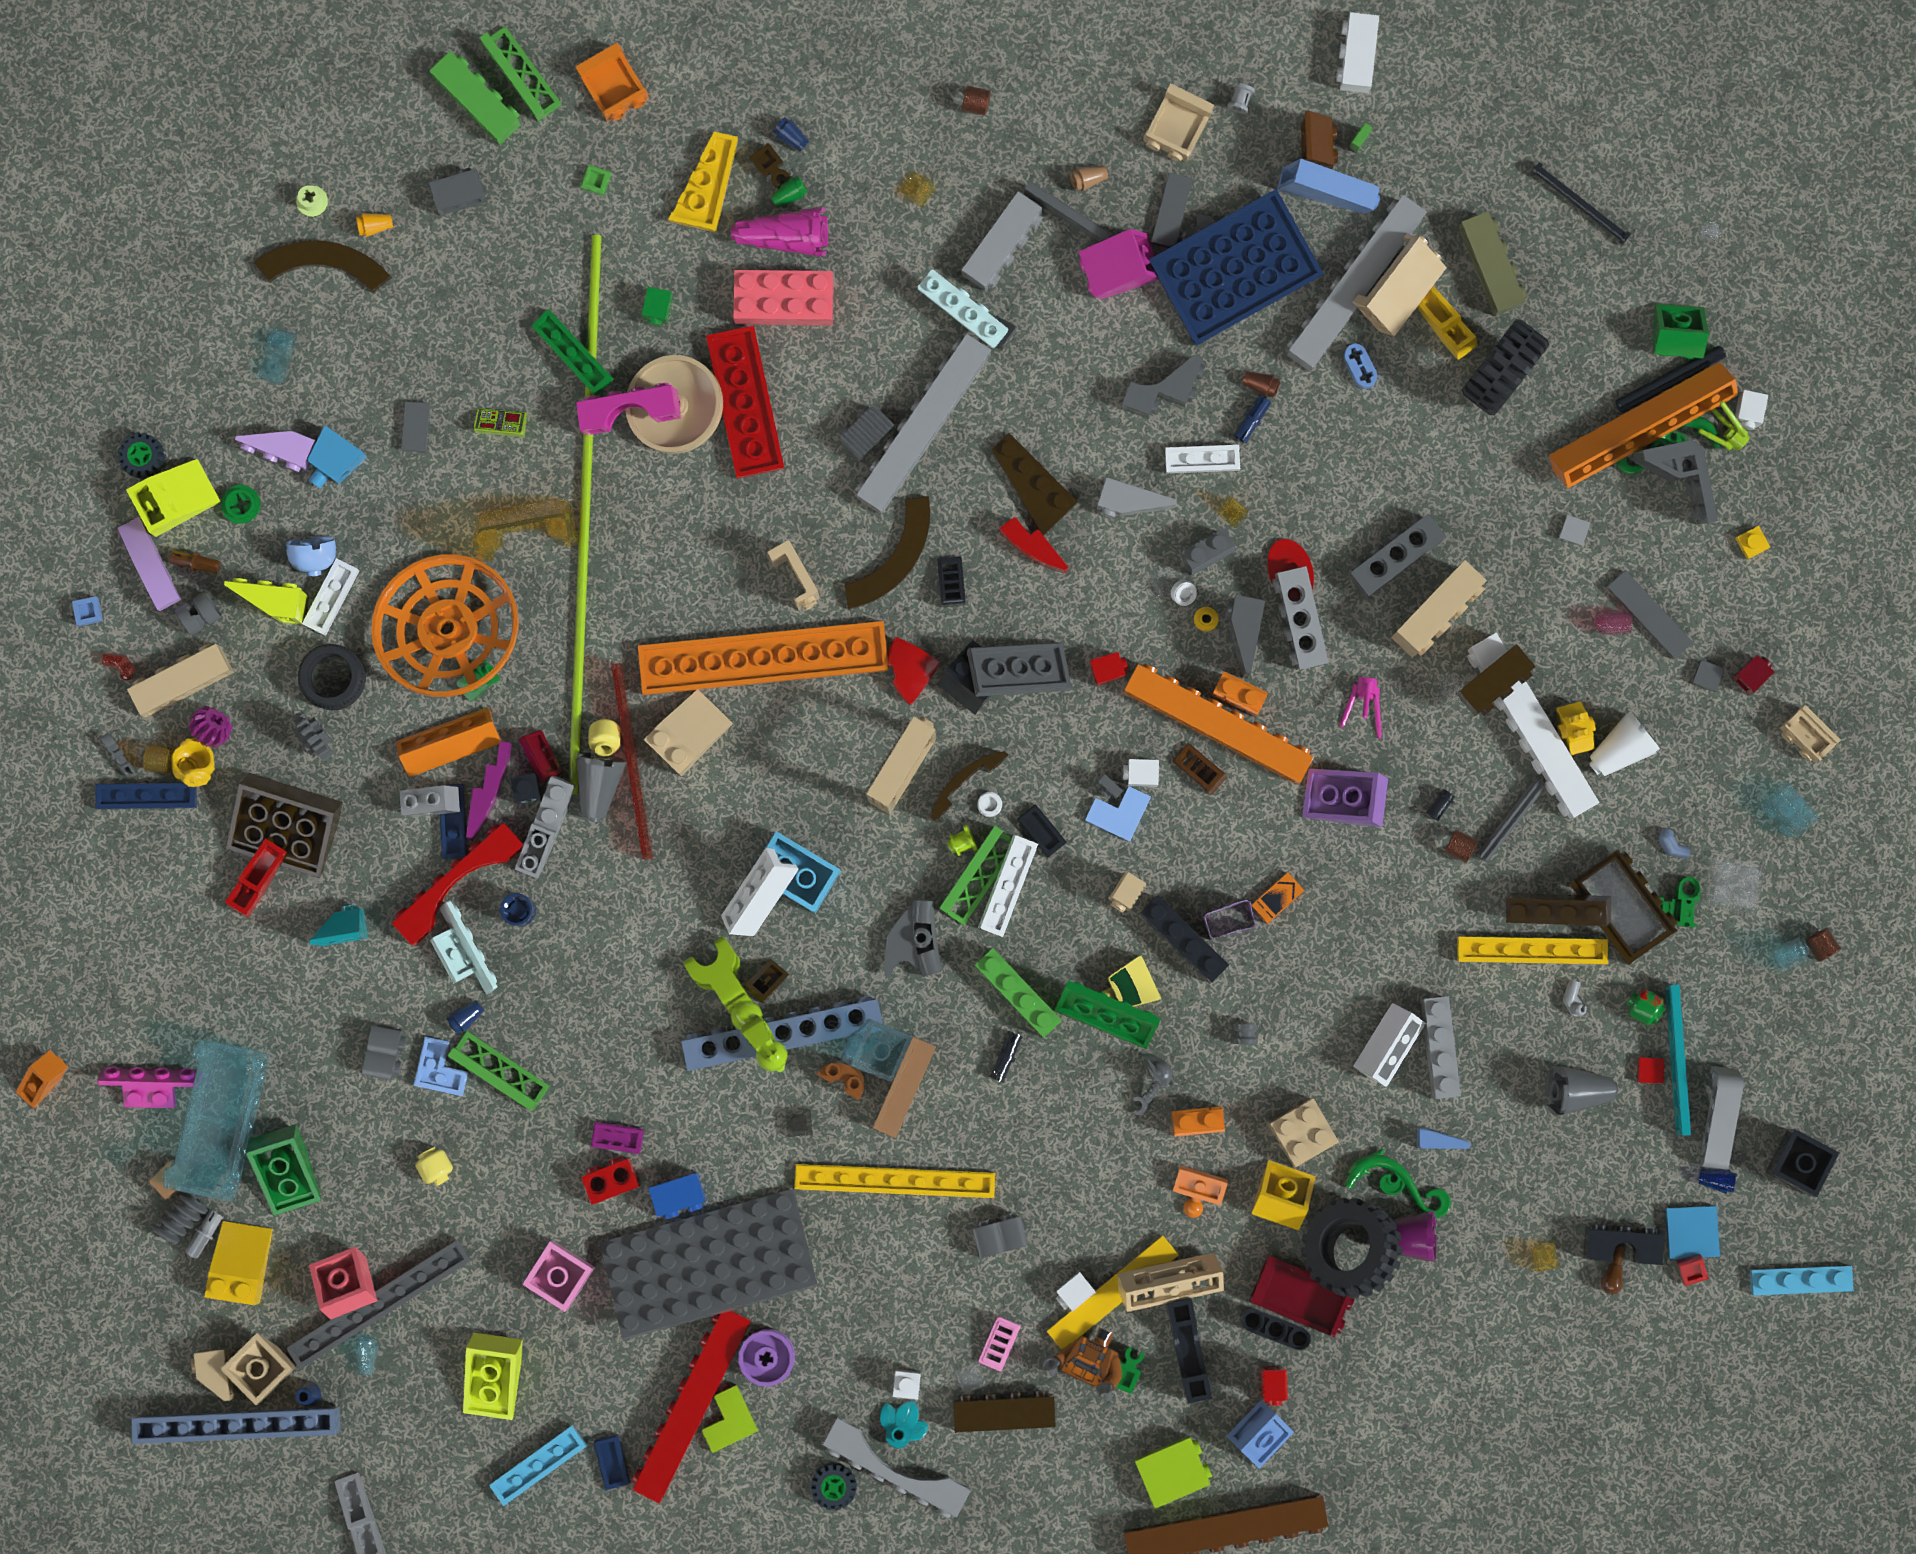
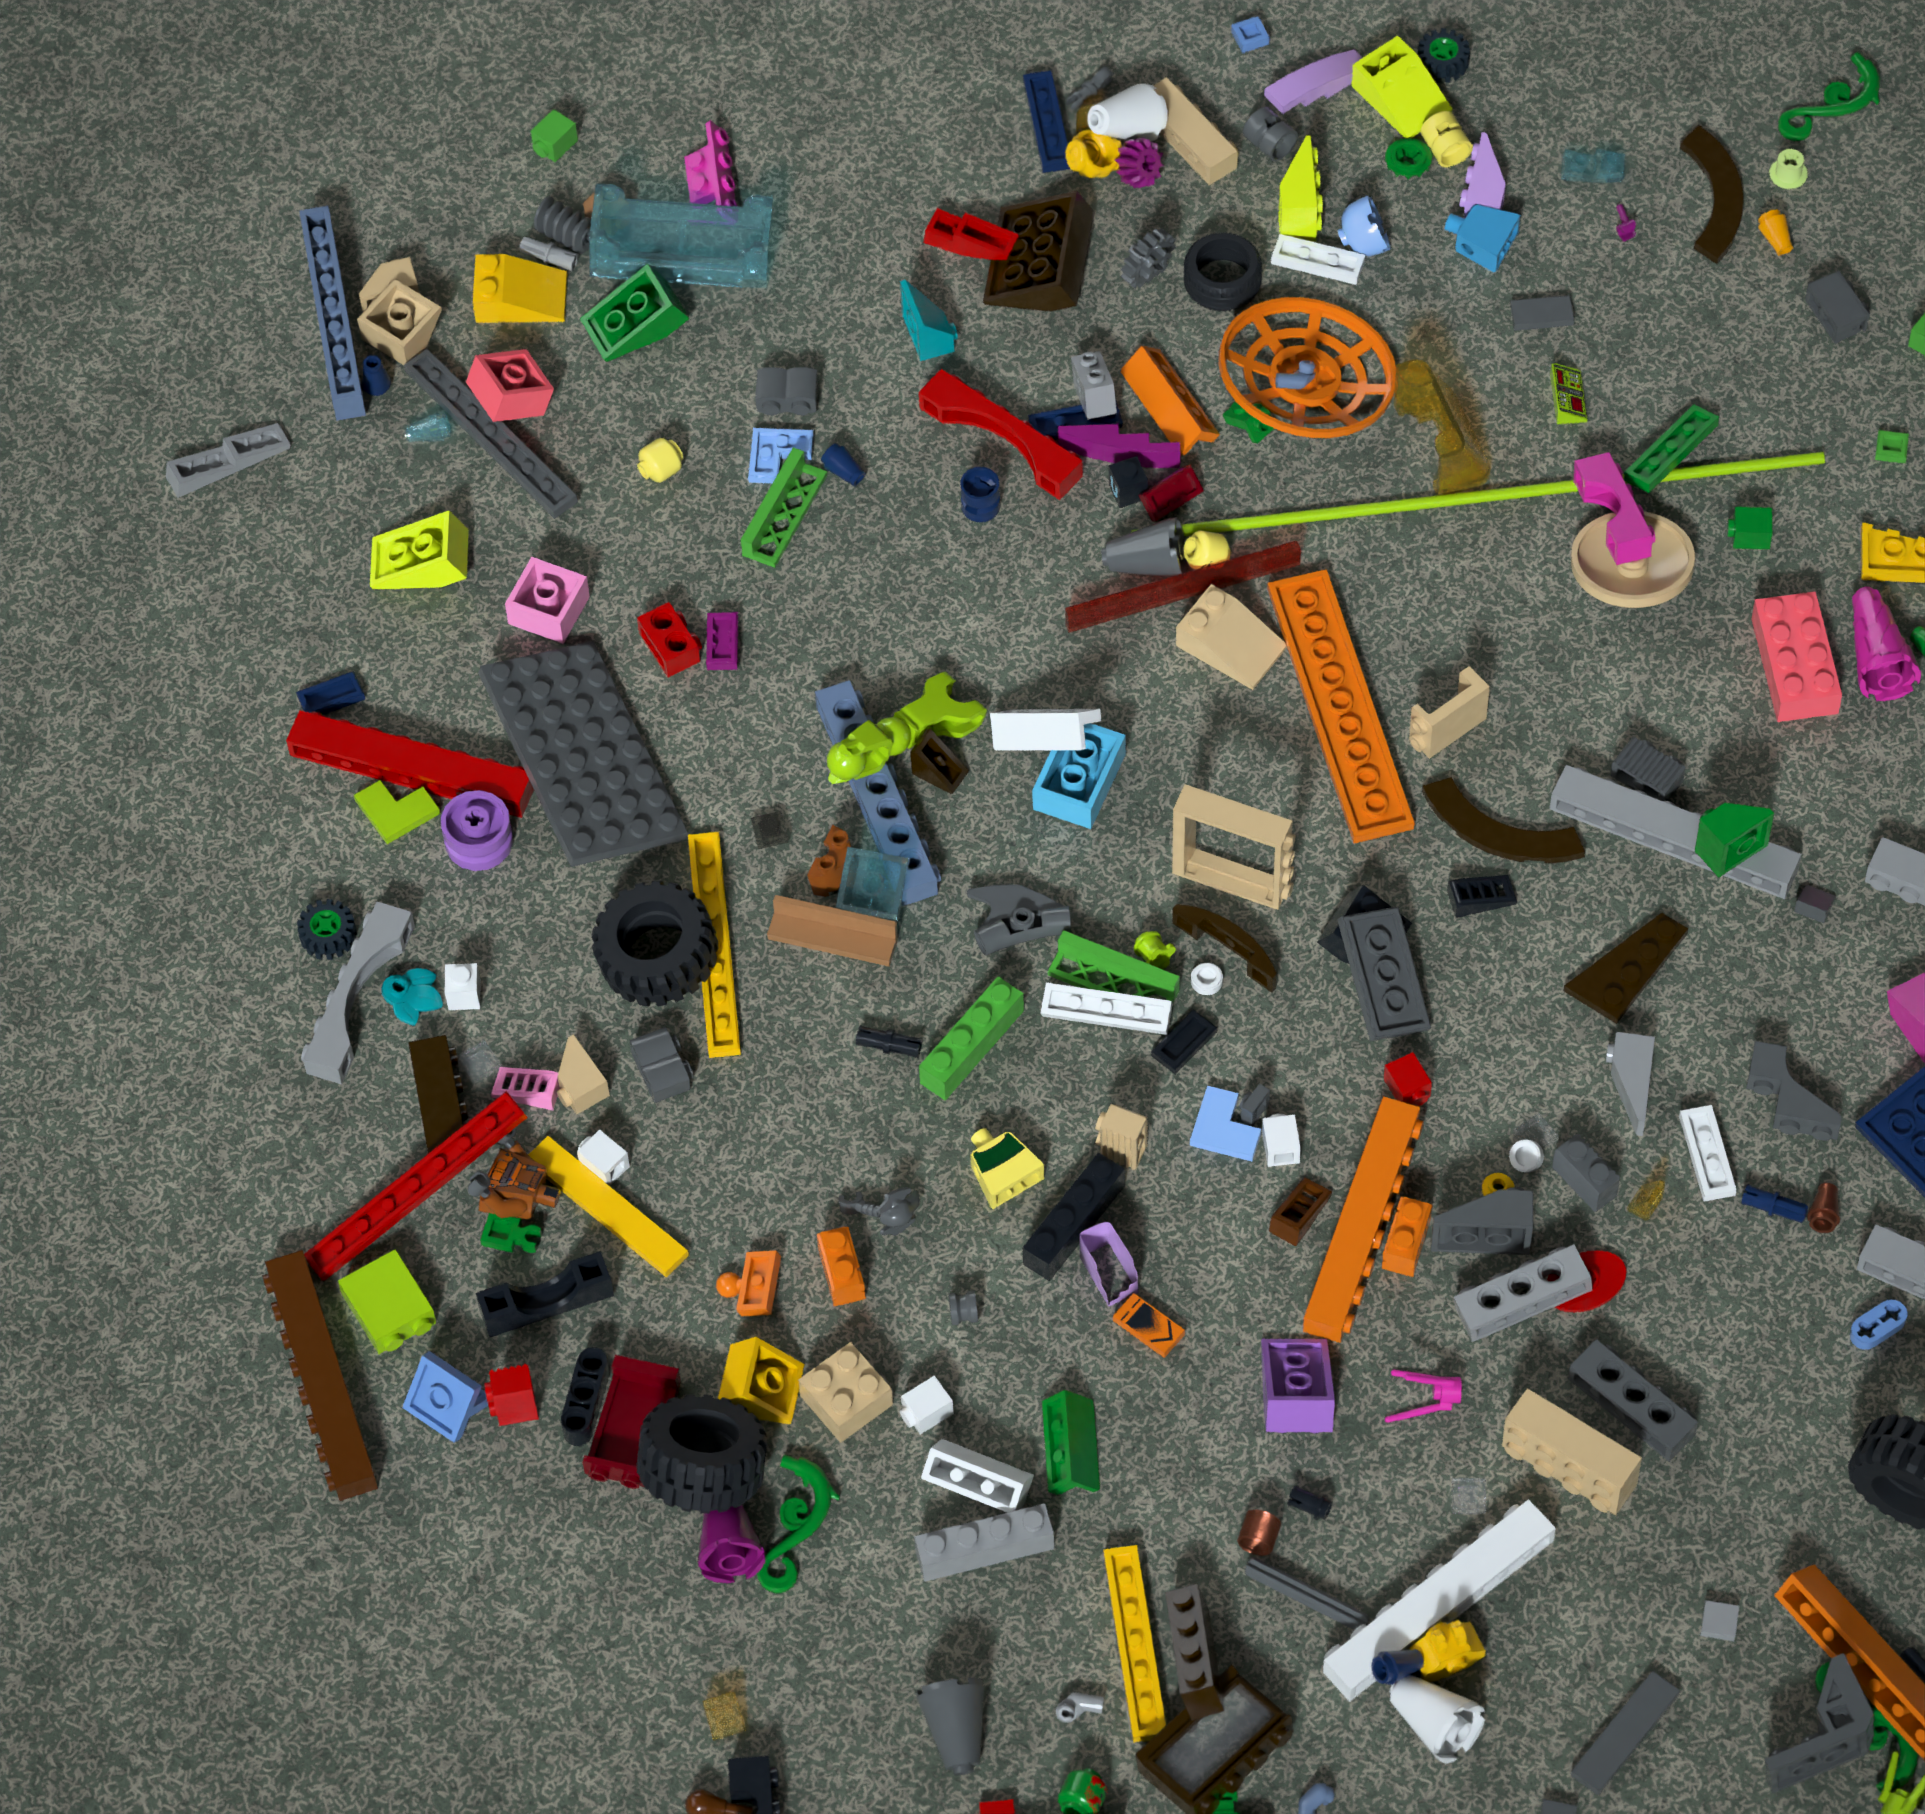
camera: 85 degrees right, 25 degrees down
(41, 1078) = (705, 74): orange slope -> none
(83, 1216) = (554, 136): none -> bright green brick
(122, 664) = (1194, 77): clear red arm -> none
(164, 726) = (1130, 114): none -> white cone
(195, 561) = (1330, 124): reddish brown axle -> none
(239, 466) = (1446, 139): none -> light yellow wheel
(255, 147) = (1835, 107): none -> green plant
(347, 342) = (1626, 228): none -> magenta hand
(459, 952) = (918, 443): light aqua bracket -> none
(463, 634) = (1299, 379): none -> sand blue arm
(538, 1465) = (318, 618): medium azure plate -> none
(545, 827) = (1079, 510): light grey slope -> none
(677, 1195) = (662, 711): blue brick -> none
(745, 402) = (1655, 638): red plate -> none
(899, 1261) = (644, 910): none -> black tyre
(911, 668) = (1359, 861): red brick -> none
(956, 384) = (1732, 835): none -> green slope
(963, 309) = (1833, 846): light aqua bracket -> none
(1002, 1301) = (579, 1078): none -> tan slope
(1032, 546) = (1549, 973): red slope -> none
(1083, 1439) = (415, 1186): none -> red tile
(1107, 1014) = (961, 1137): green plate -> none
(1170, 1281) = (629, 1257): tan brick -> none
(1322, 1074) = (926, 1405): none -> white brick
(1367, 971) = (1070, 1443): none -> green panel
(1432, 1139) = (860, 1550): medium blue slope -> none
(1496, 681) = (1488, 1527): dark brown brick -> none
(1589, 767) = (1395, 1665): none -> dark blue cone
(1613, 622) = (1604, 1683): clear pink brick -> none

